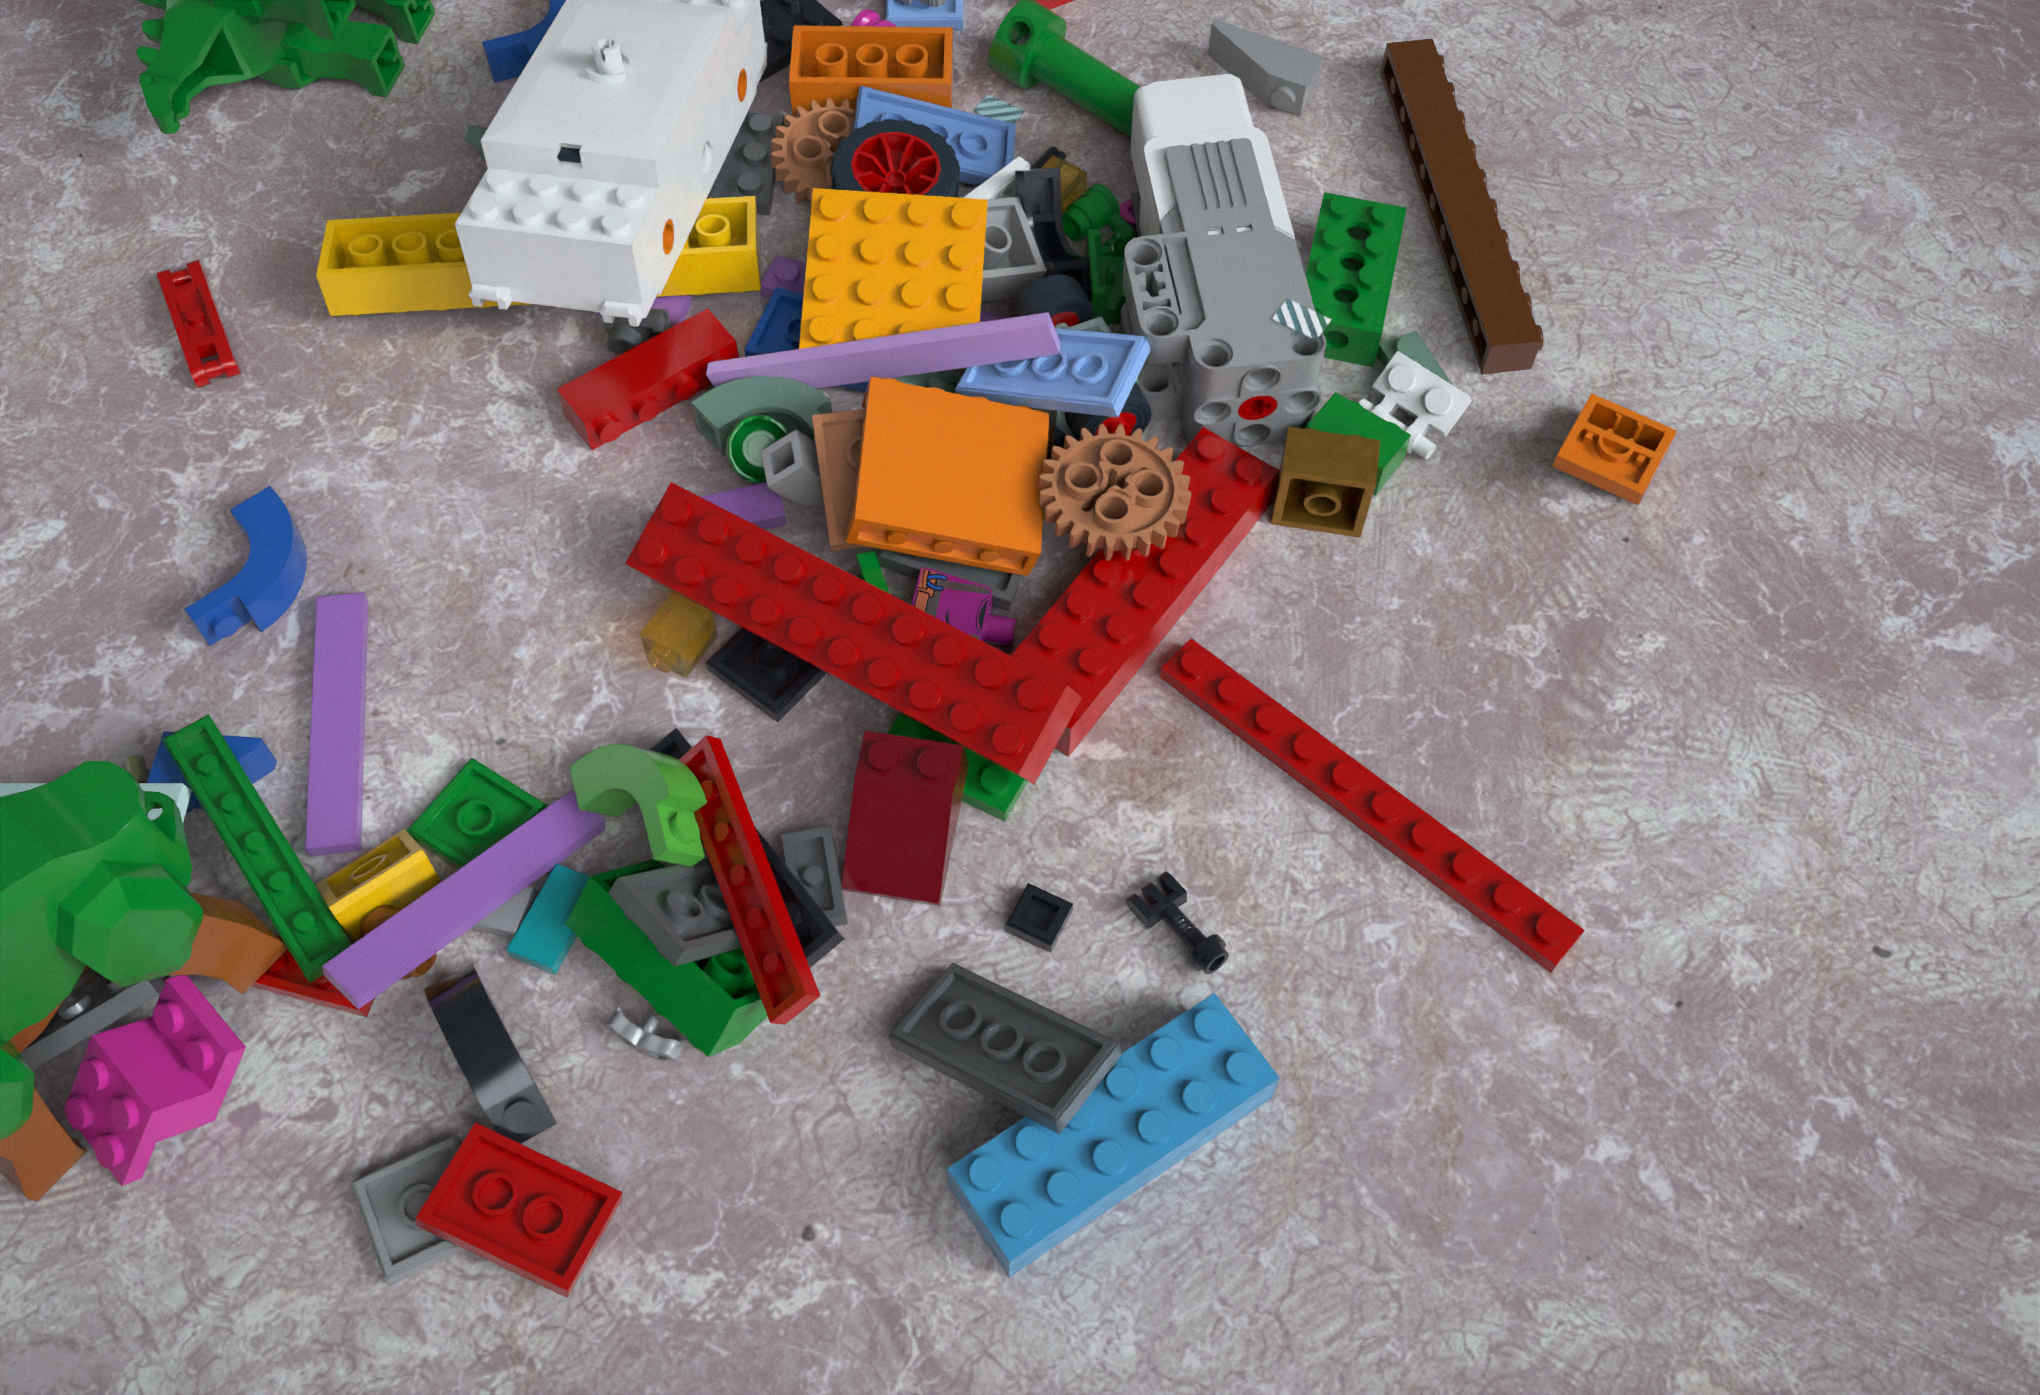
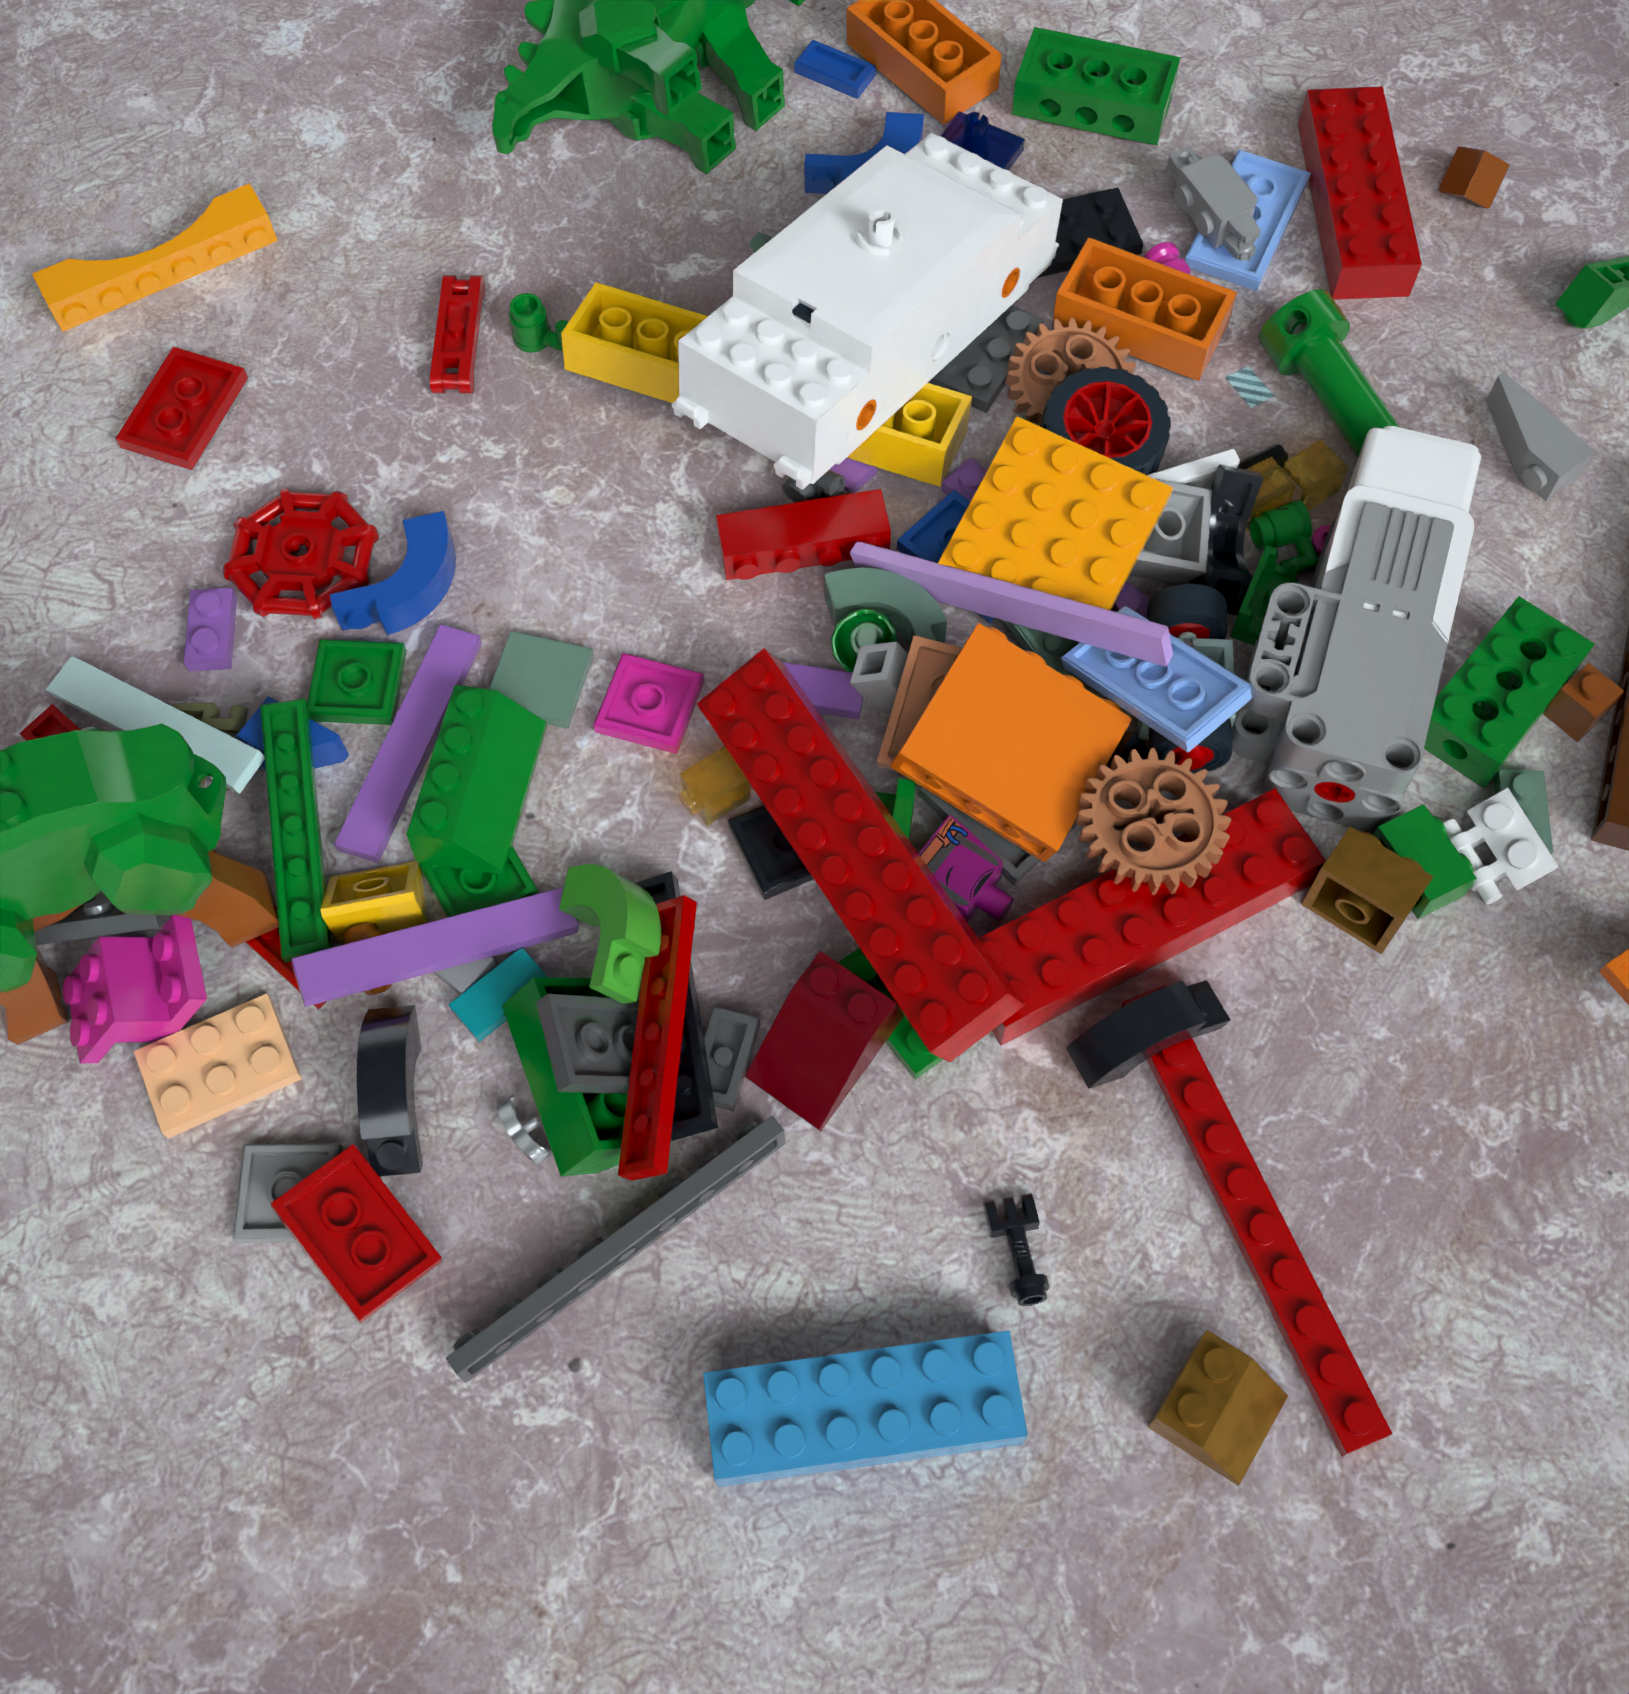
camera: 30 degrees right, 5 degrees up
(61, 699) = (210, 629): none -> medium lavender plate
(118, 555) = (305, 572): none -> red plate
(251, 685) = (356, 682): none -> green tile
(274, 287) = (531, 326): none -> green piece
(281, 1120) = (217, 1065): none -> light nougat plate
(431, 727) = (476, 782): none -> green slope
(446, 610) = (543, 676): none -> sand green tile
(571, 589) = (649, 703): none -> dark pink tile
(787, 1115) = (603, 1257): none -> dark grey plate
(979, 142) = (1201, 411): medium blue tile -> none
(1006, 1047) = (807, 1290): dark grey tile -> none
(1039, 917) = (899, 1182): black tile -> none
(1098, 155) = (1317, 473): none -> clear yellow panel
(1193, 683) = (1144, 1029): none -> black arch
(1301, 319) = (1409, 729): sticker -> none
(1419, 262) = (1583, 702): none -> dark orange brick
(1426, 977) = (1219, 1407): none -> pearl gold slope

